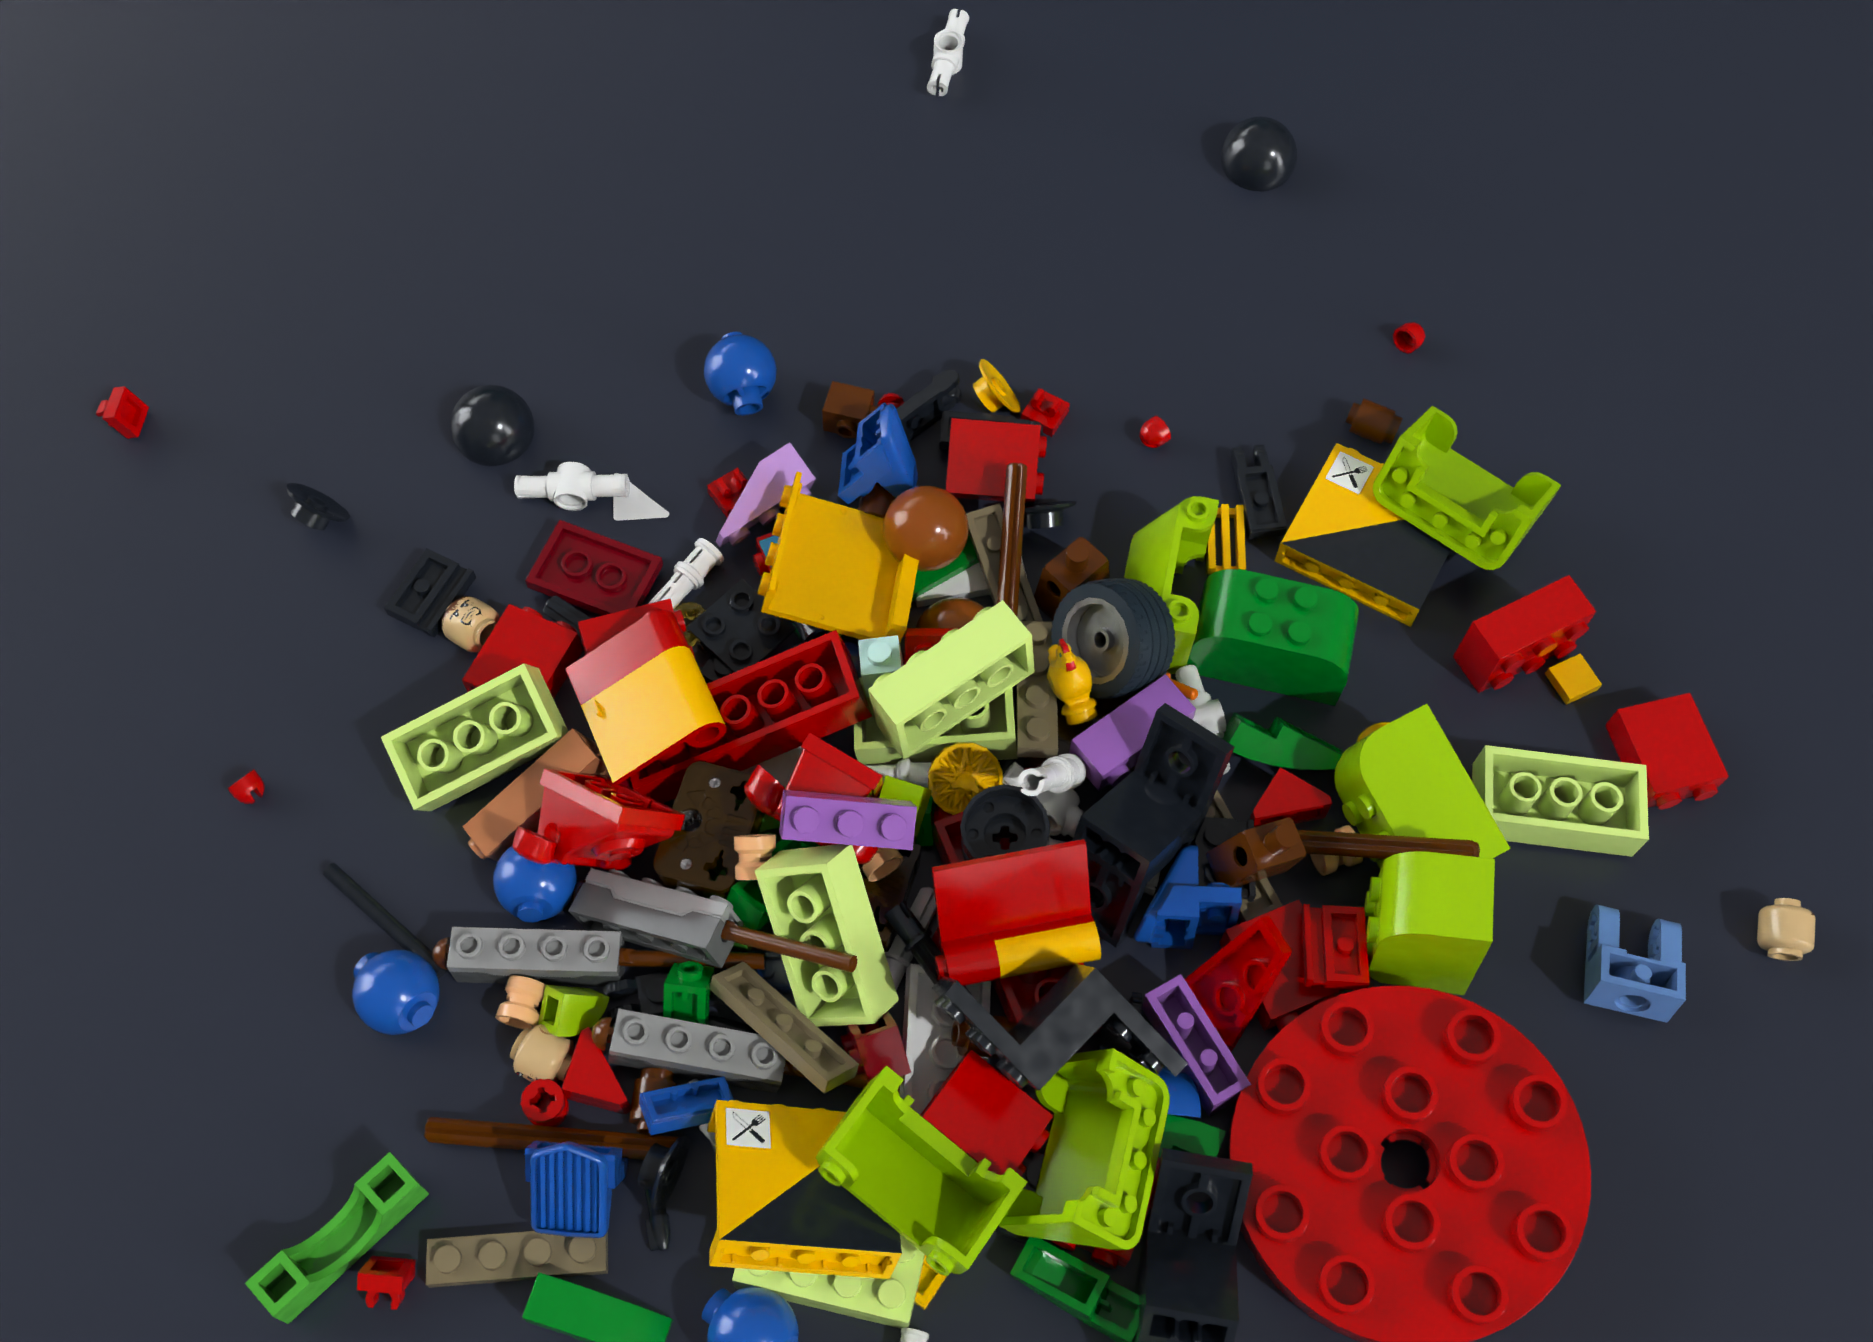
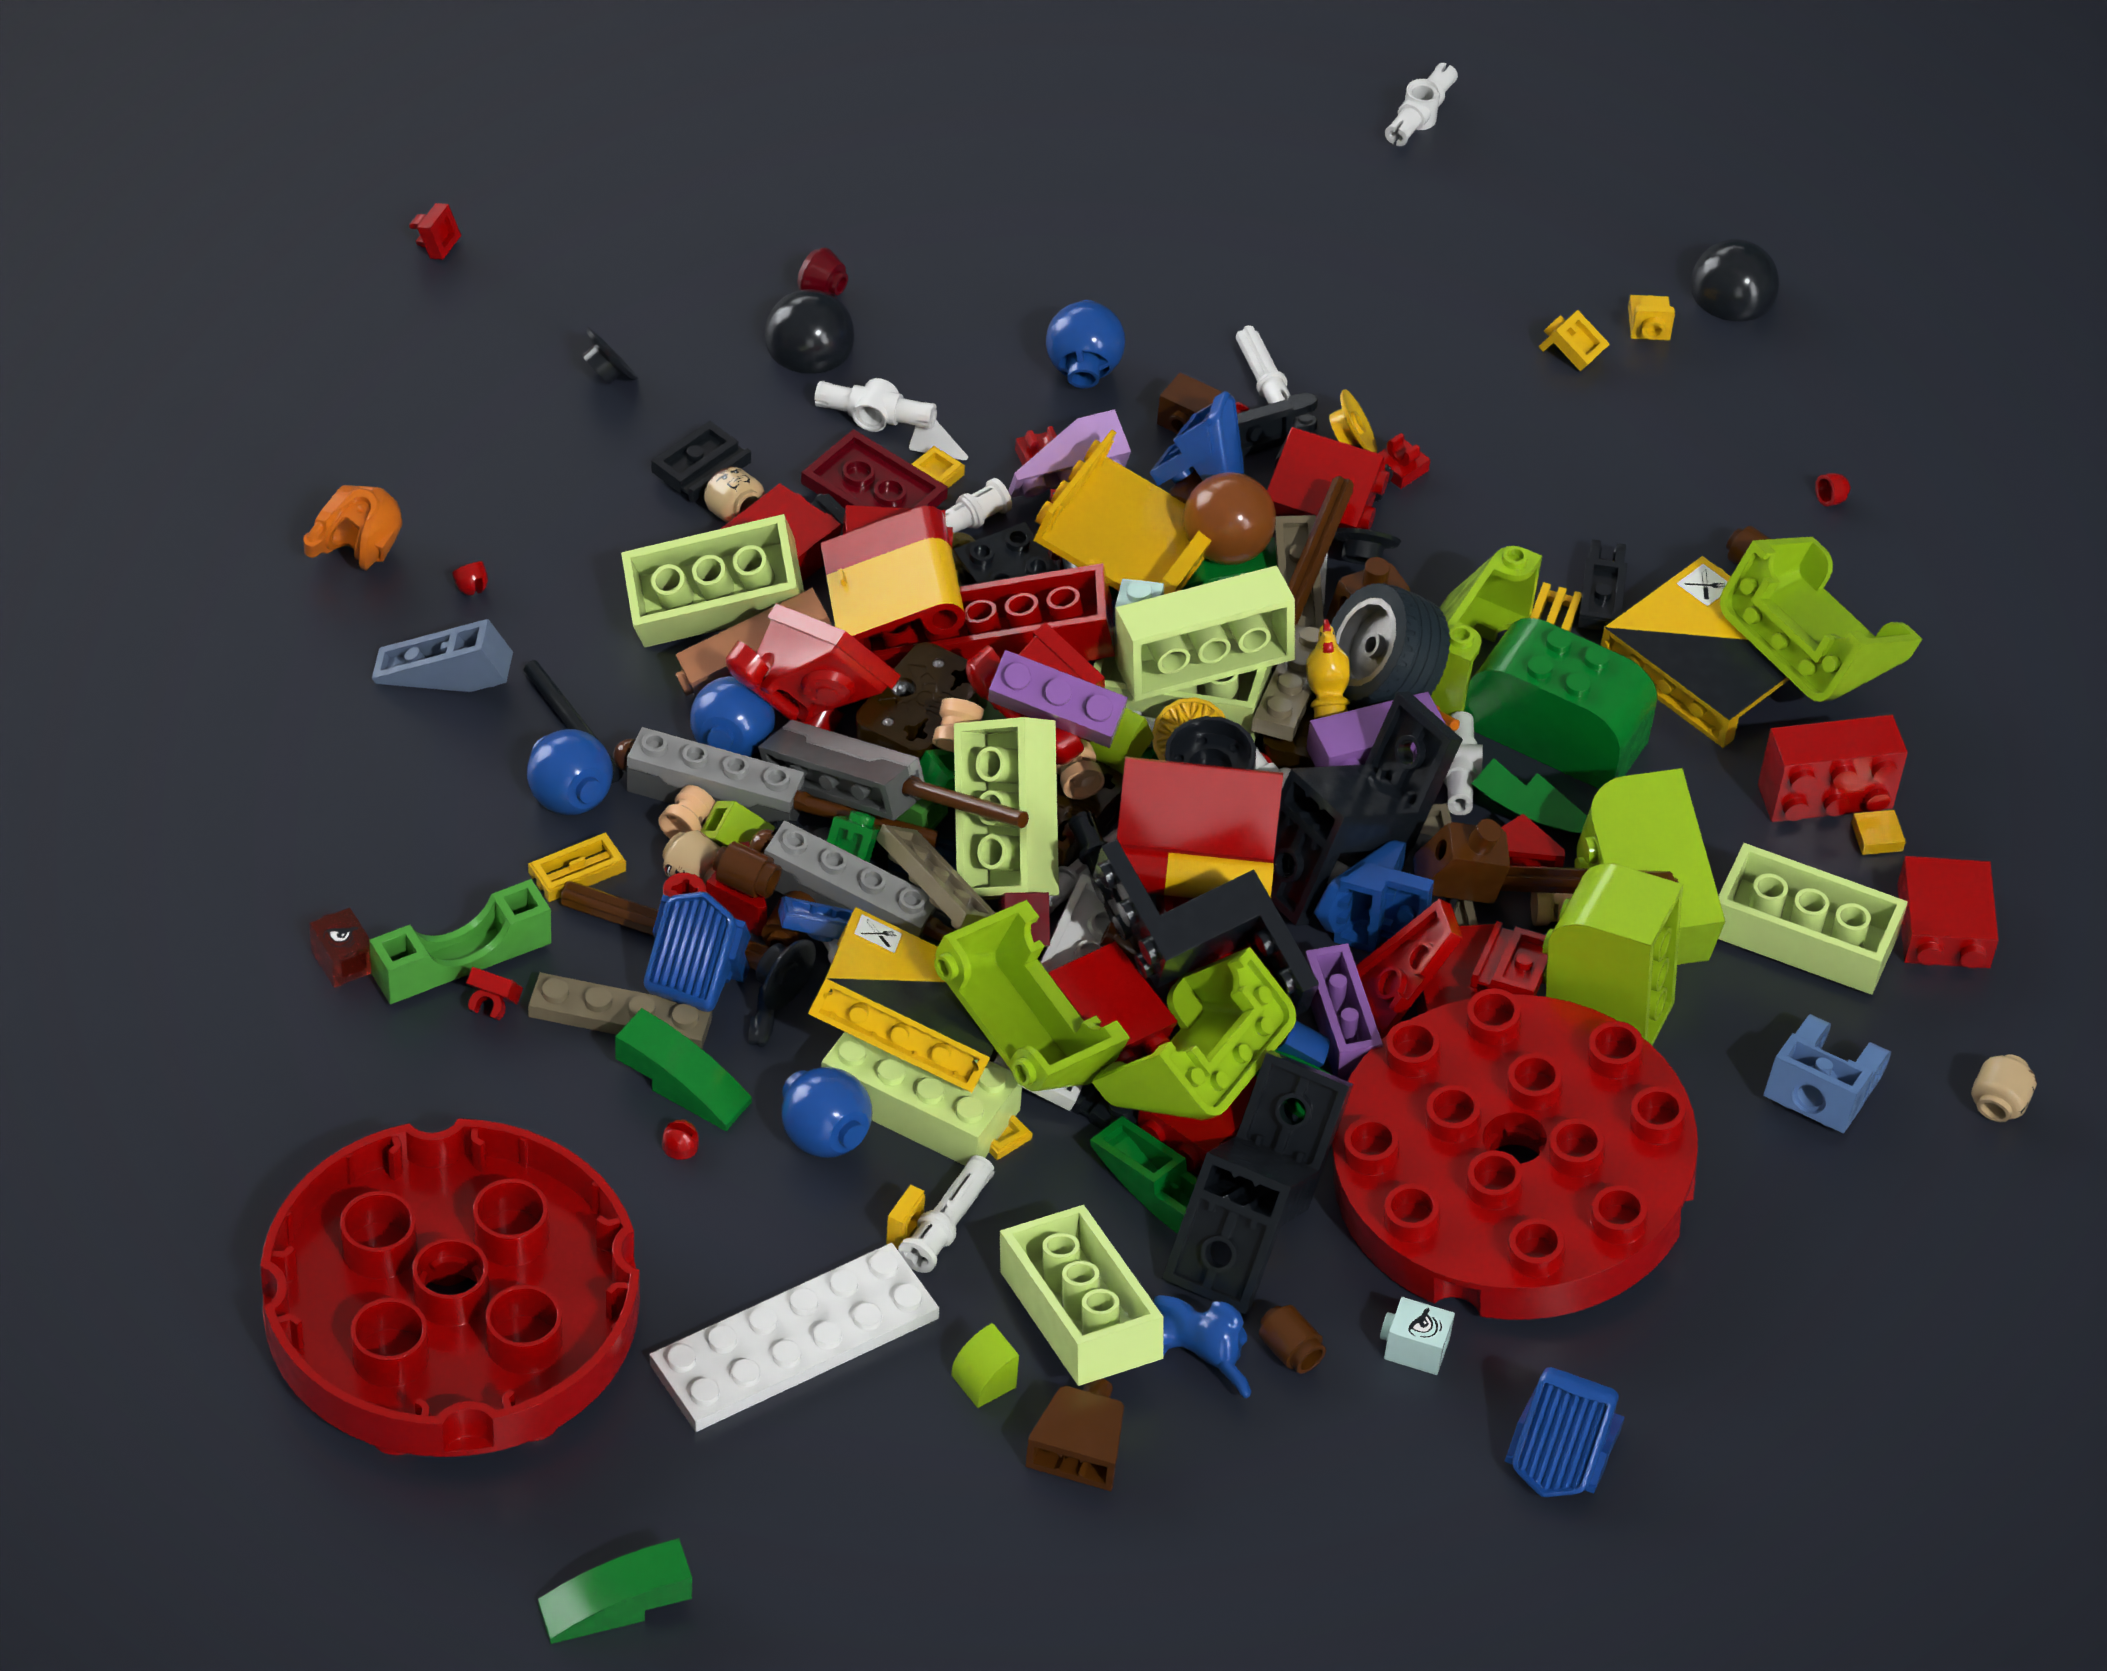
camera: 15 degrees right, 15 degrees down
(124, 758) = (359, 518): none -> orange helmet
(219, 1275) = (341, 947): none -> clear red brick
(245, 893) = (451, 660): none -> sand blue slope
(430, 1094) = (580, 870): none -> yellow tile
(487, 363) = (823, 272): none -> dark red cone
(597, 1074) = (746, 870): none -> reddish brown brick
(646, 534) = (940, 466): none -> yellow tile
(909, 362) = (1270, 381): none -> white axle
(1055, 774) = (1281, 741): white pin -> none
(1150, 248) = (1576, 339): none -> yellow bracket
(1155, 432) = (1512, 507): red hinge -> none
(1202, 207) = (1650, 317): none -> yellow bracket

